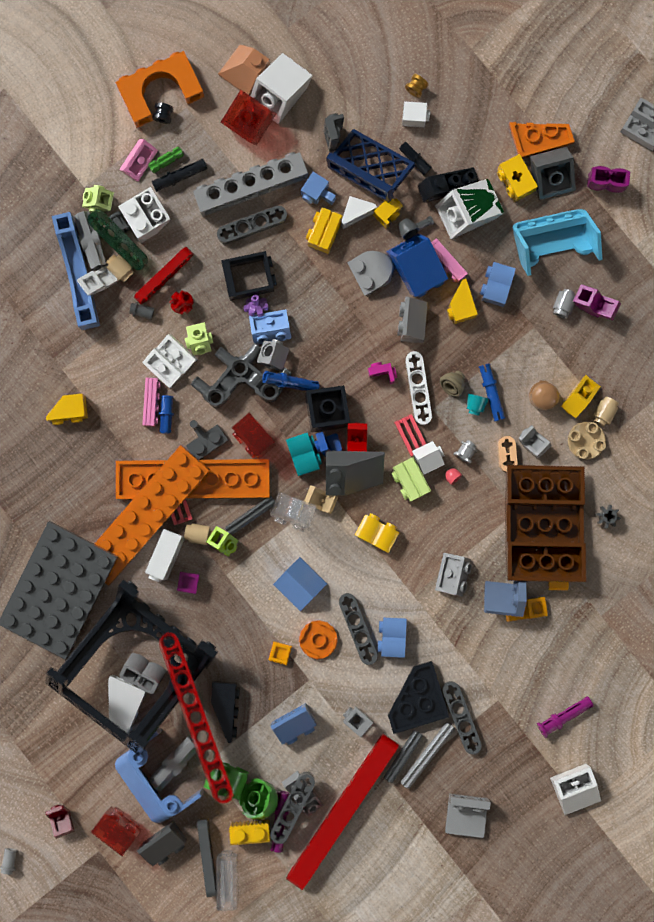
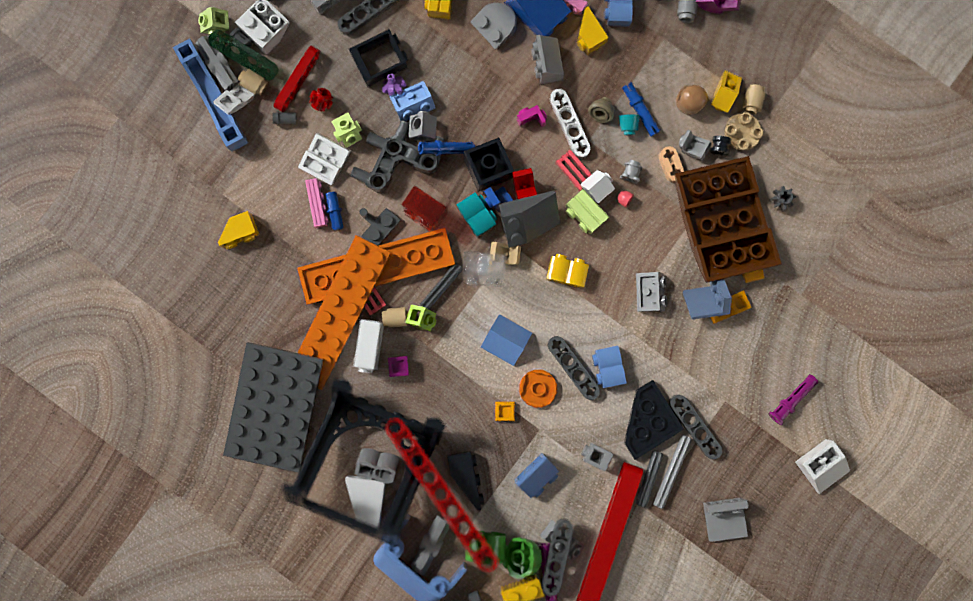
camera: 20 degrees left, 0 degrees up
(560, 448) = (720, 145): none -> black wheel

